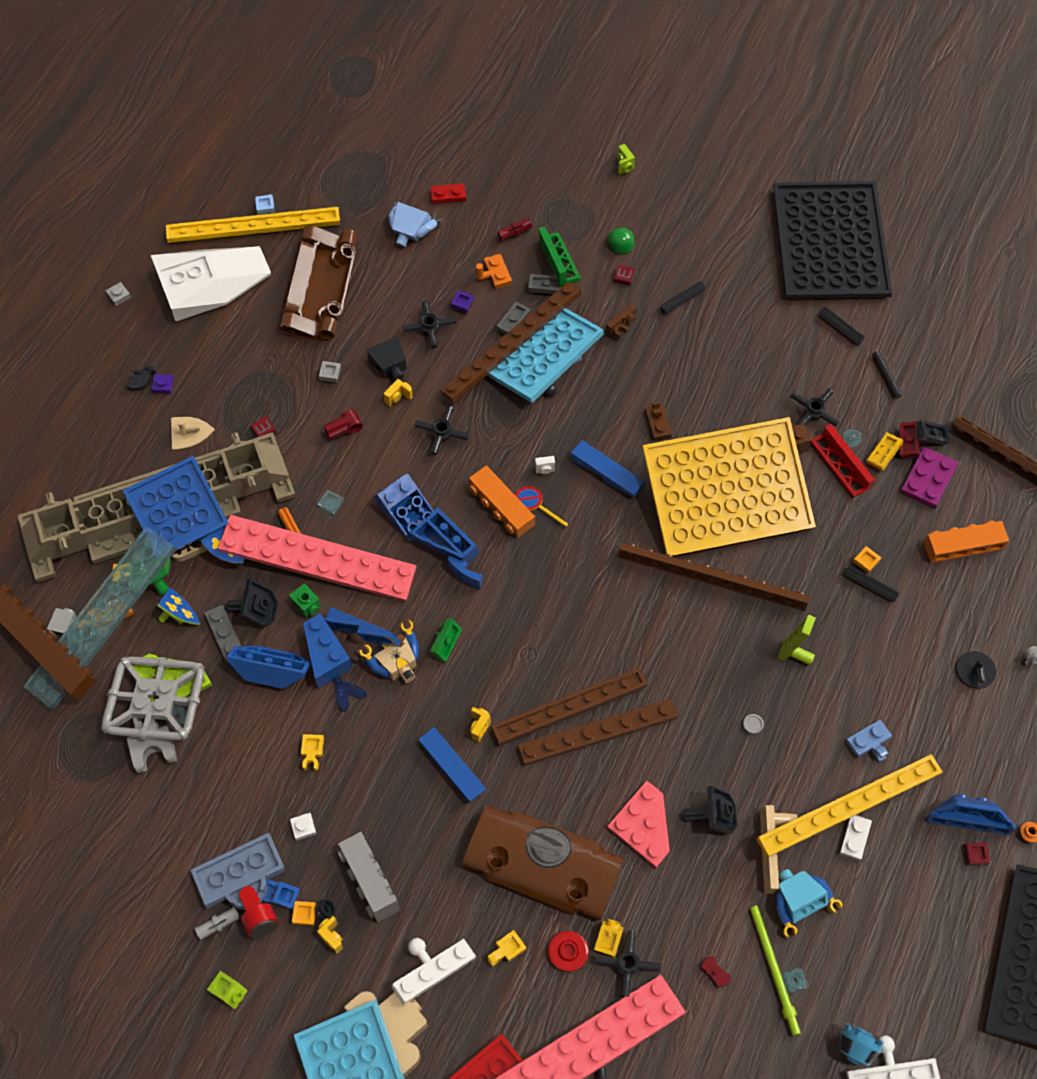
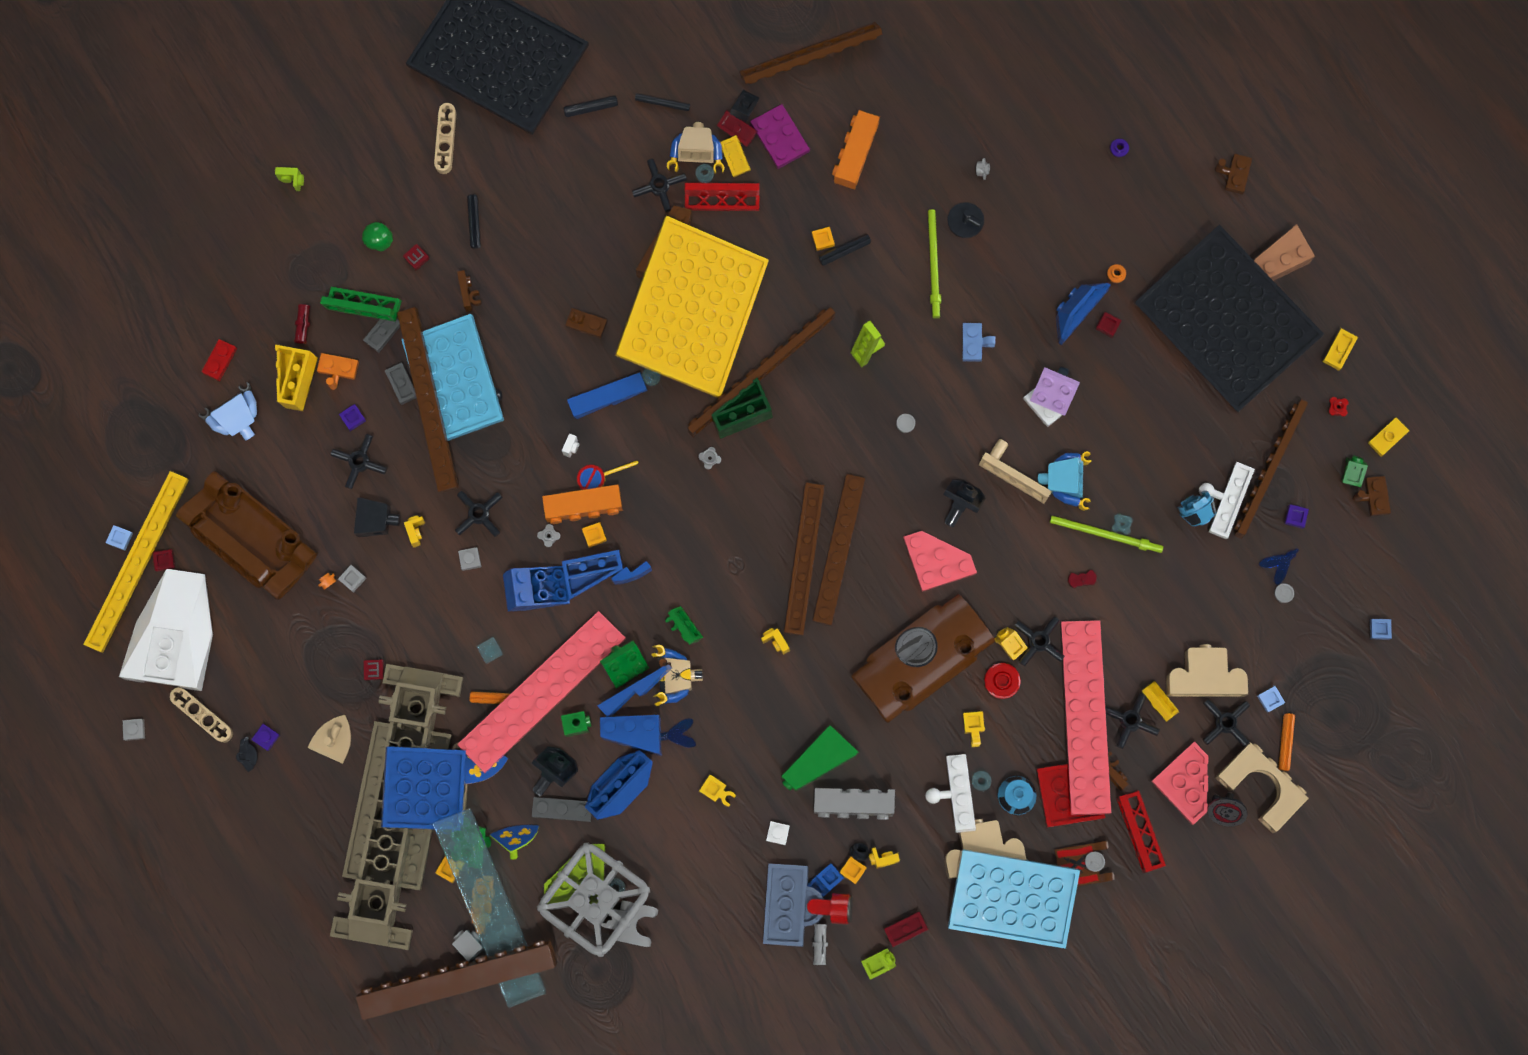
camera: 60 degrees left, 15 degrees up
(155, 331) = (201, 714): none -> tan beam
(266, 242) = (163, 560): none -> dark red tile
(273, 996) = (905, 929): none -> dark red plate
(316, 355) = (327, 580): none -> orange plate
(346, 423) = (417, 591): dark red piece -> none
(380, 608) = (624, 663): none -> green plate
(392, 822) = (821, 757): none -> green slope
(400, 446) = (469, 559): none -> light grey plate
(452, 765) = (798, 683): blue slope -> none
(459, 980) = (981, 774): none -> clear light blue plate
(460, 497) = (548, 541): none -> light grey plate
(464, 1030) = (1017, 795): none -> dark azure cone
(468, 244) = (295, 374): none -> yellow wedge
(480, 525) = (594, 534): none -> light orange plate
(608, 573) = (709, 453): none -> light grey plate
(647, 487) = (650, 381): none -> clear light blue plate
(666, 579) = (743, 411): none -> dark green wedge
(735, 242) = (445, 138): none -> tan beam
(848, 806) = (1019, 395): yellow plate -> none
(869, 415) = (696, 145): none -> tan torso
(876, 833) = (1055, 390): none -> lavender plate
(886, 683) = (935, 298): none -> lime bar

